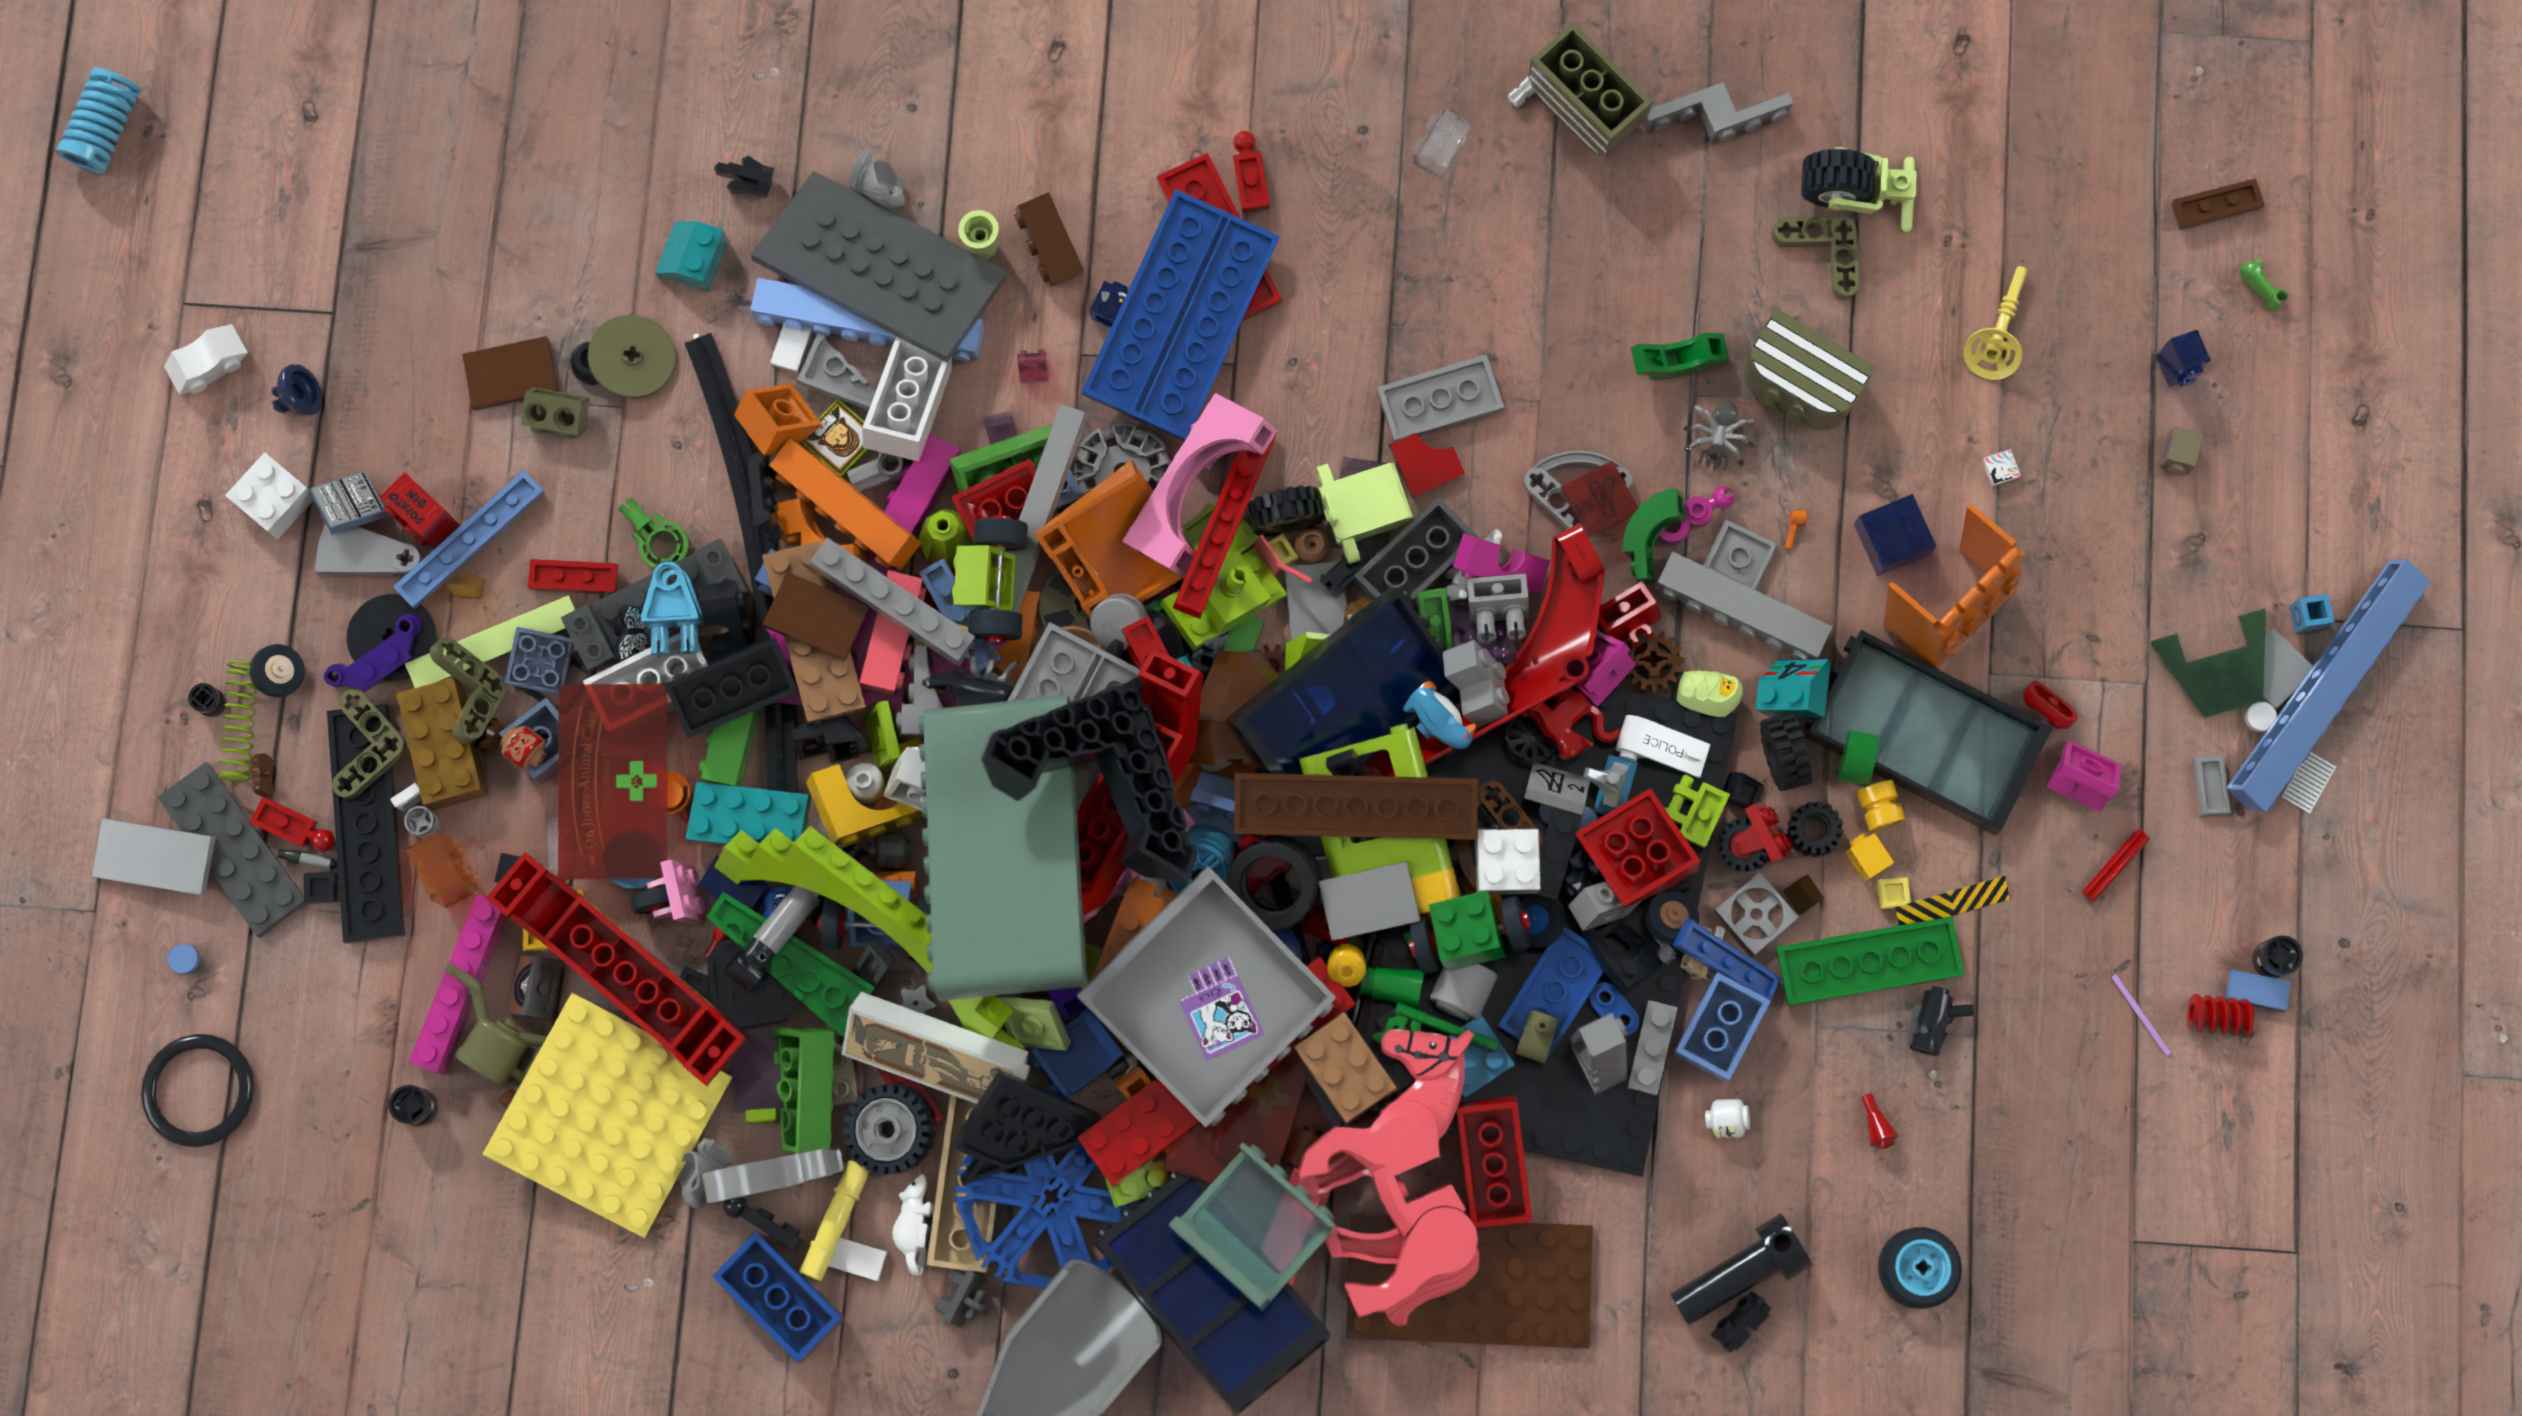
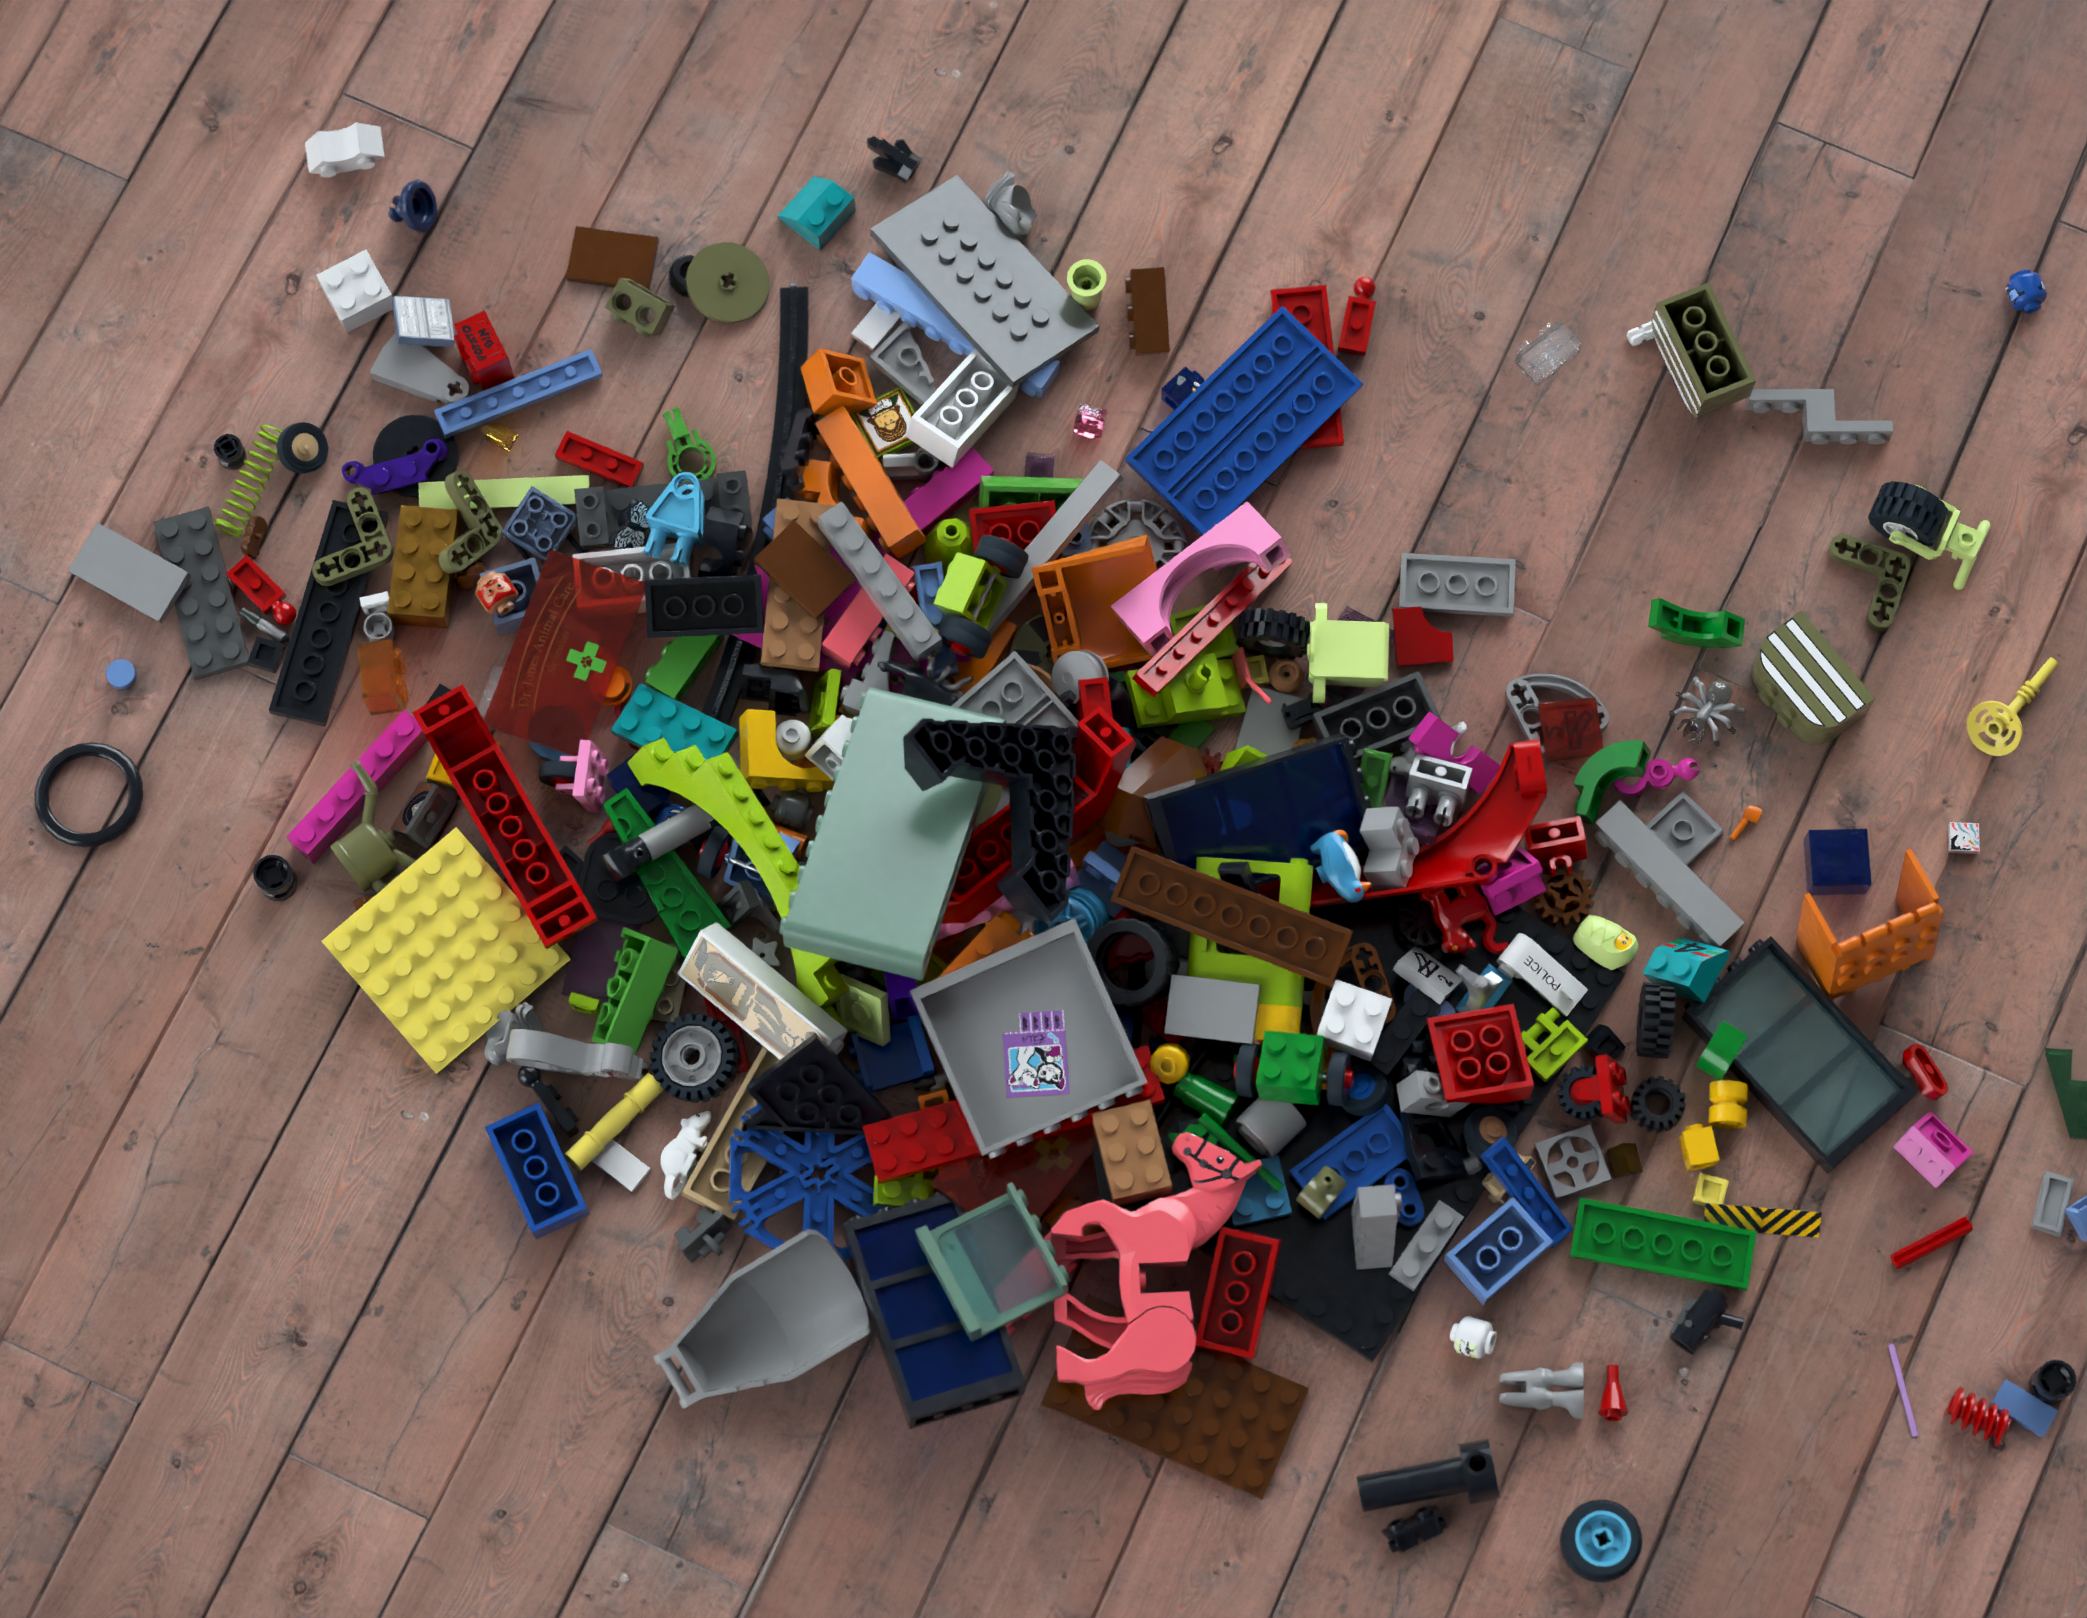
camera: 20 degrees right, 5 degrees down
(1804, 1146) = (1535, 1392): none -> light grey piece

